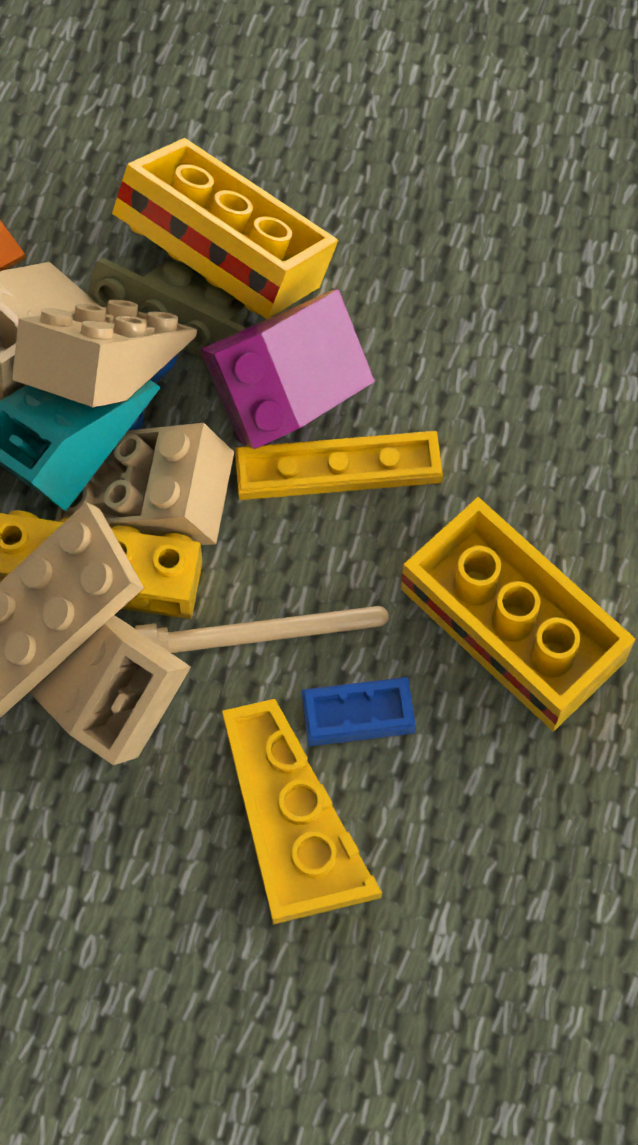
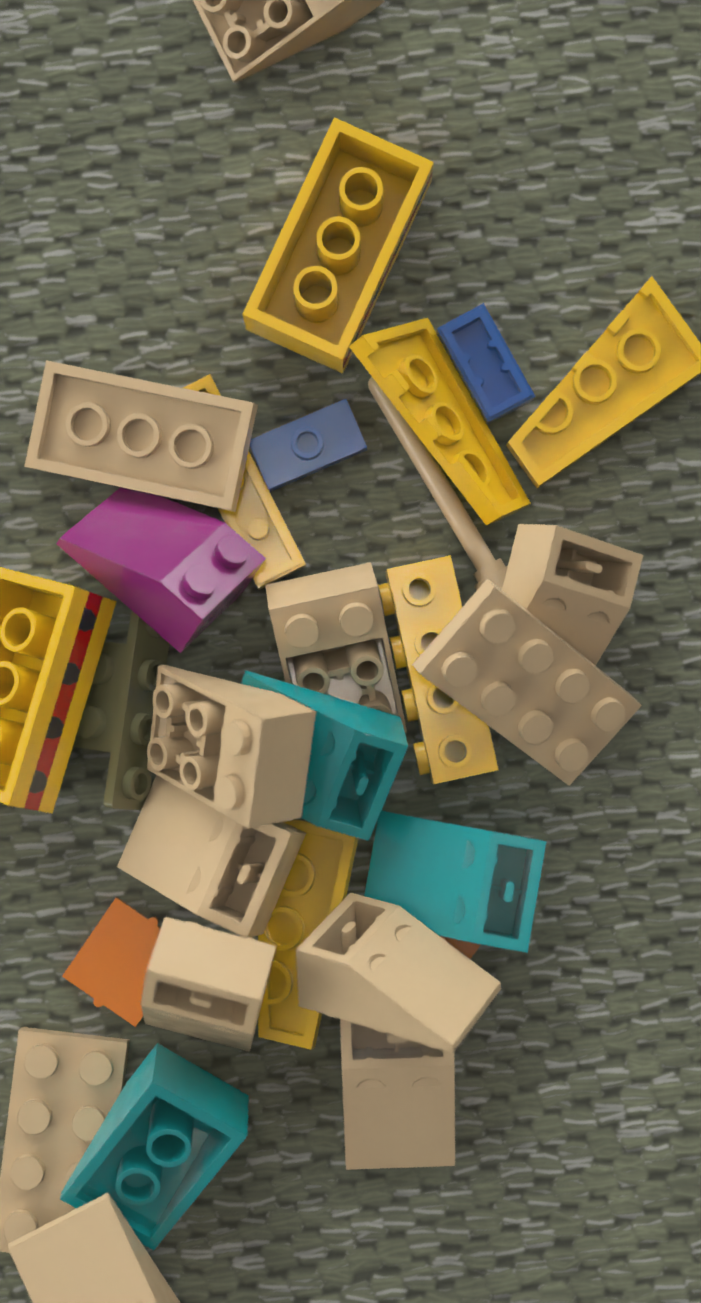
camera: 110 degrees left, 20 degrees up
(336, 644) = (436, 404): none -> yellow wing
(346, 536) = (307, 445): none -> blue plate
(405, 396) = (141, 435): none -> tan plate

